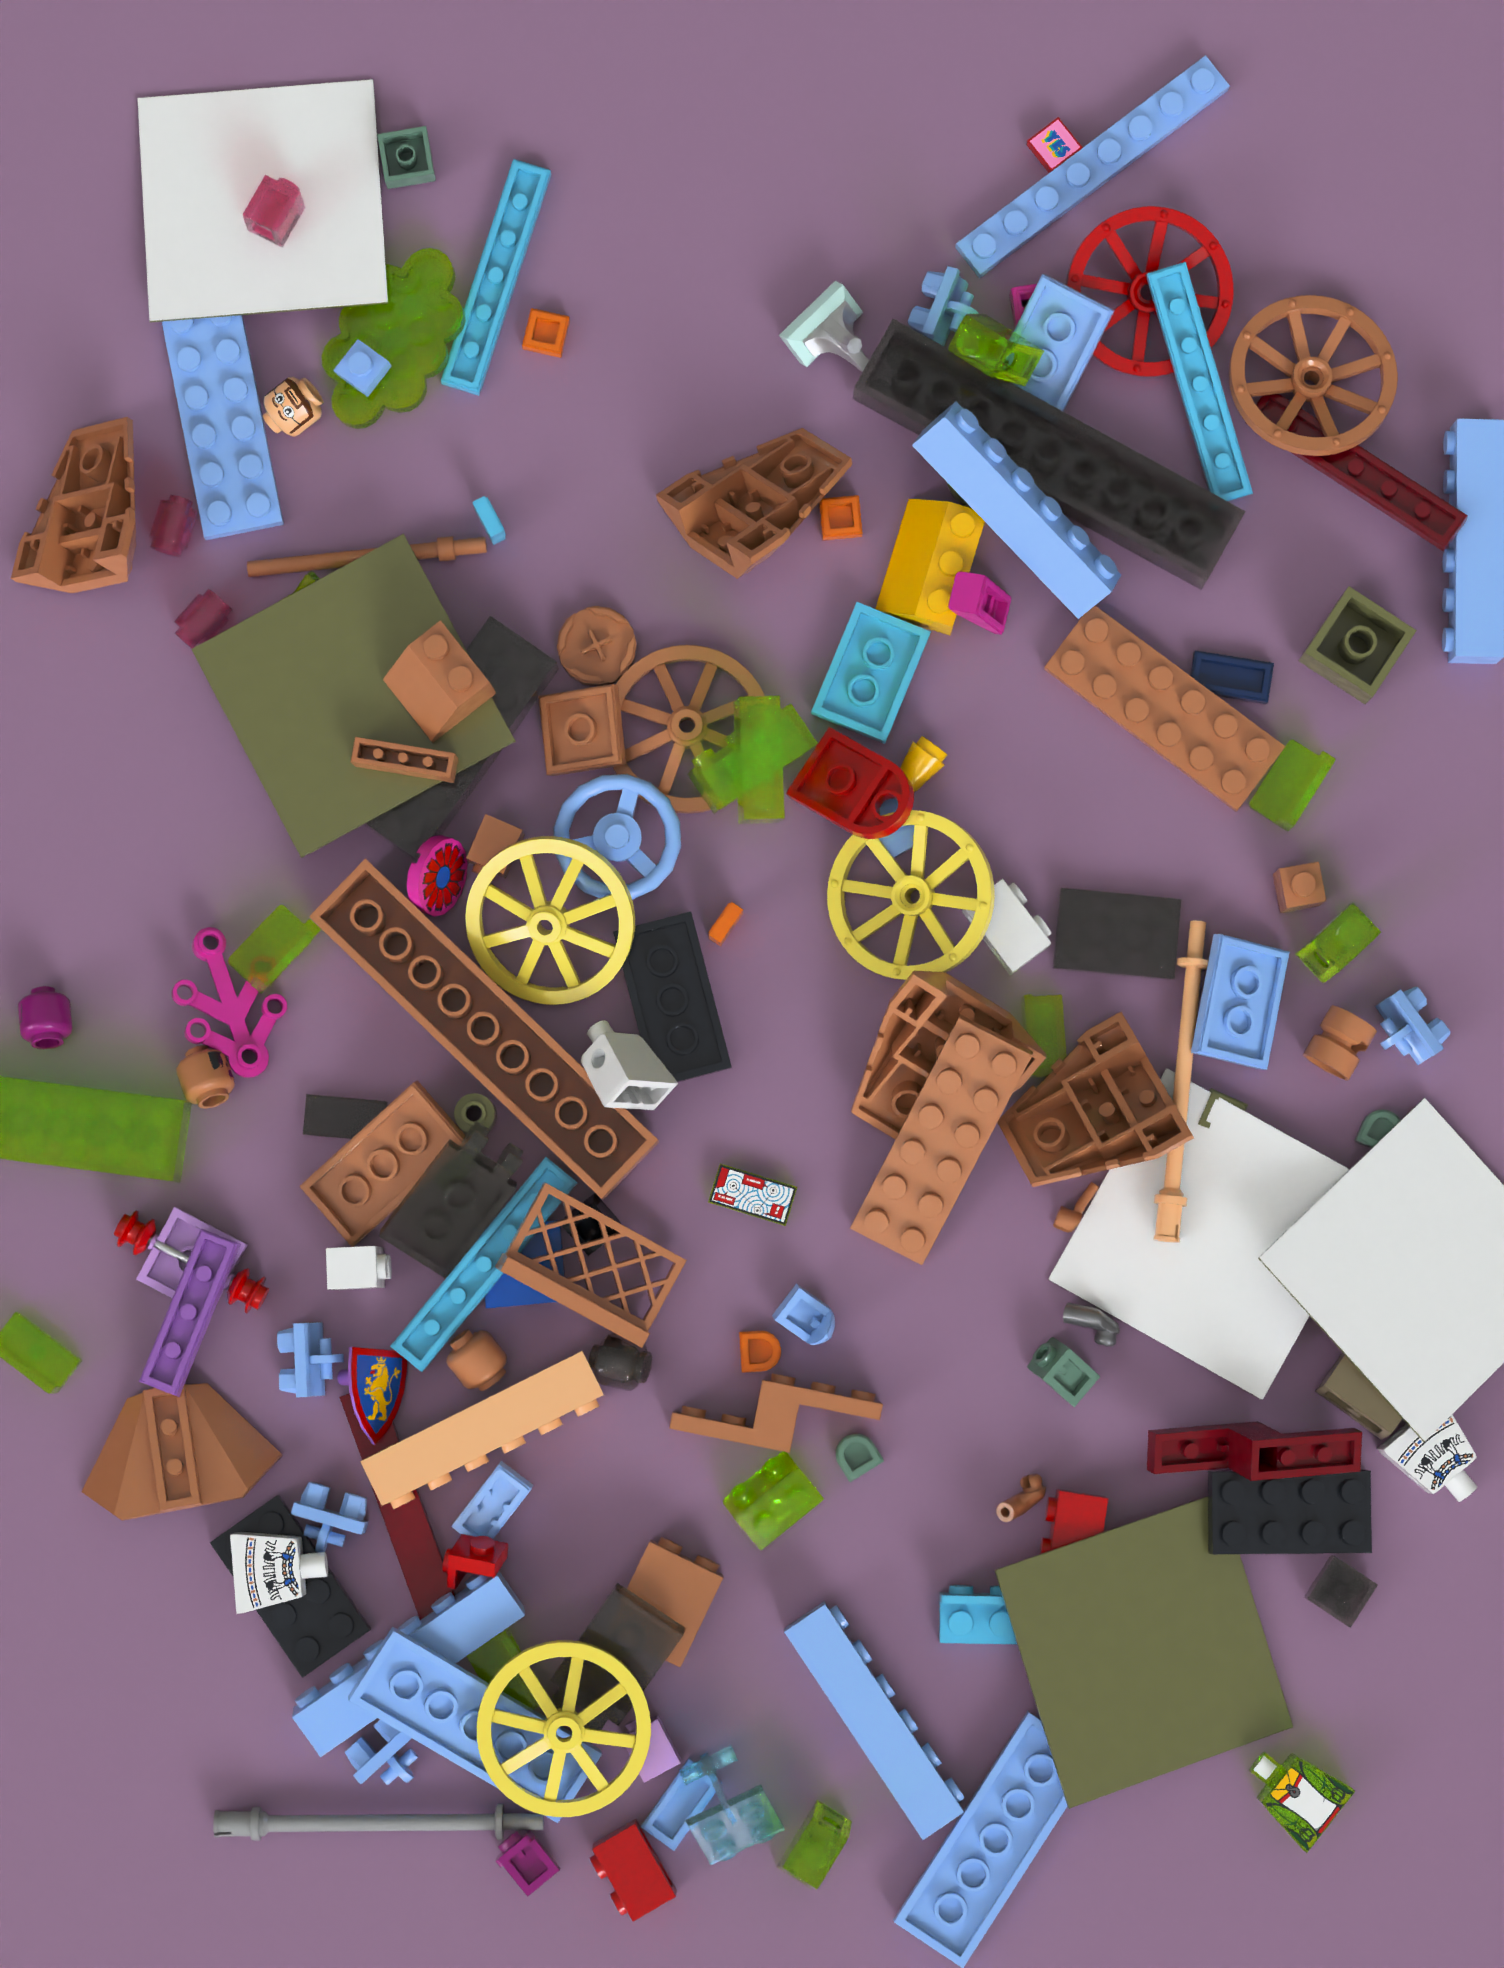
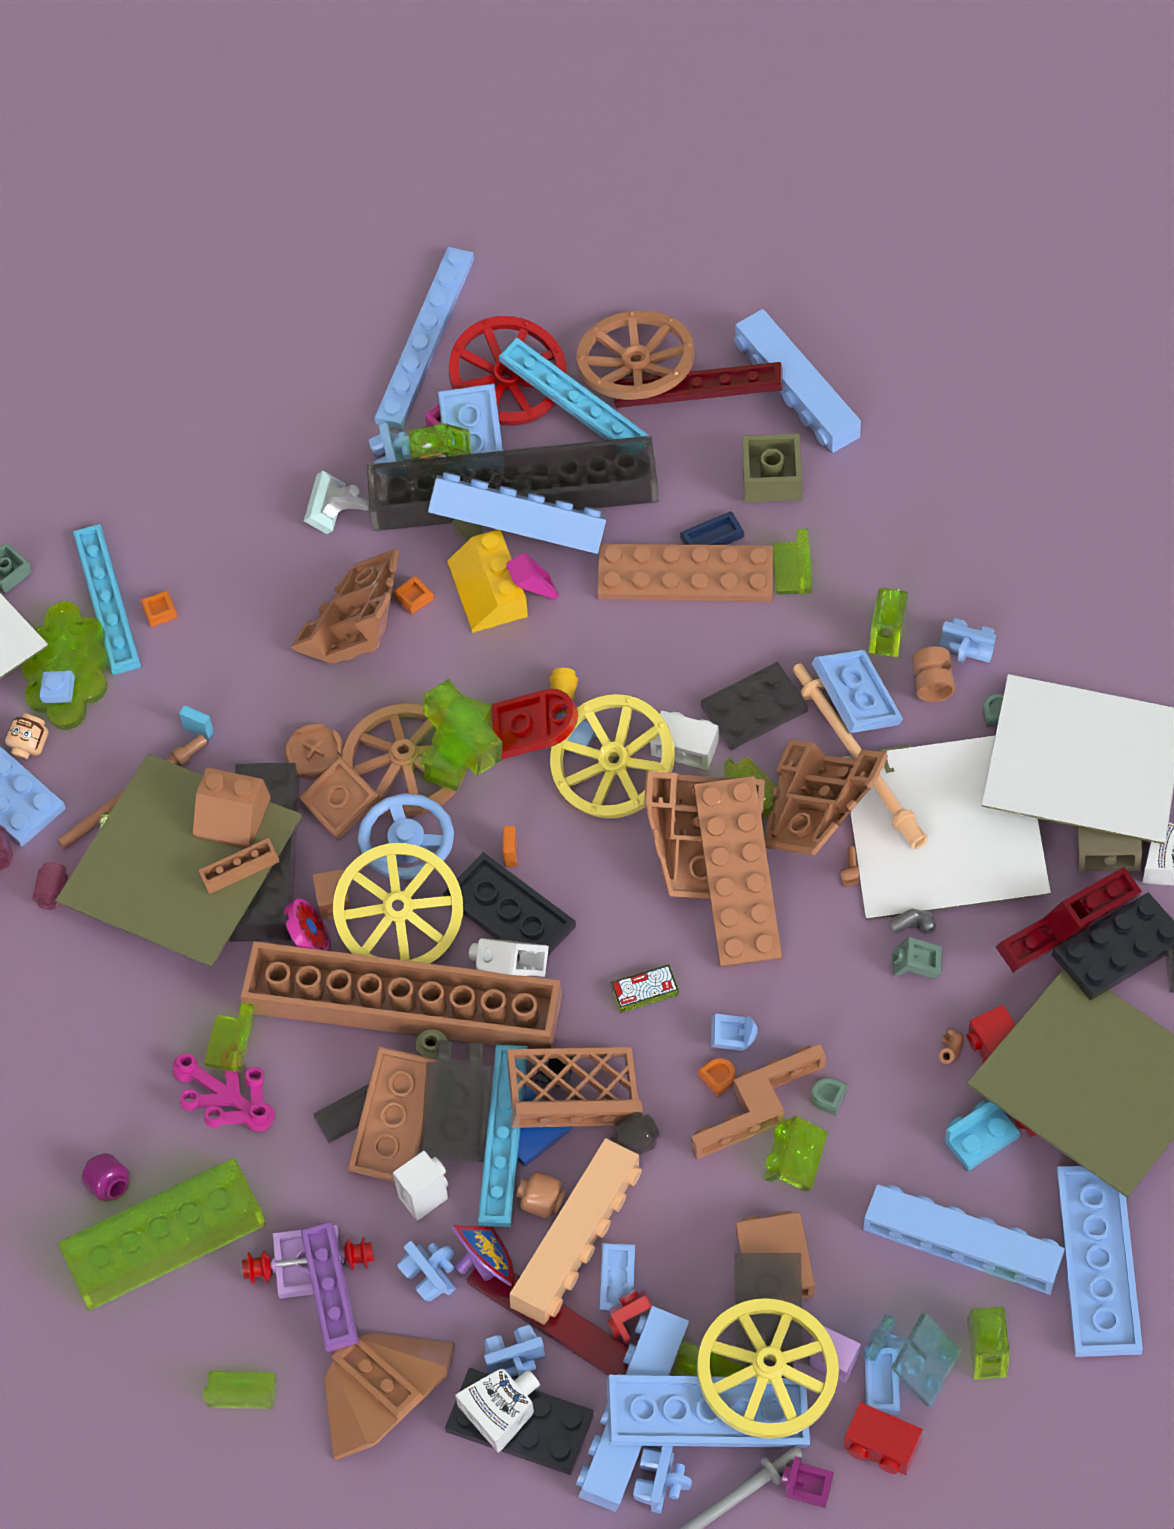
camera: 30 degrees left, 25 degrees down
(205, 1077) = (238, 1141): nougat head -> none
(870, 672) = (495, 660): medium azure plate -> none
(1053, 145) = (393, 339): tile -> none
(1299, 887) = (841, 610): nougat brick -> none

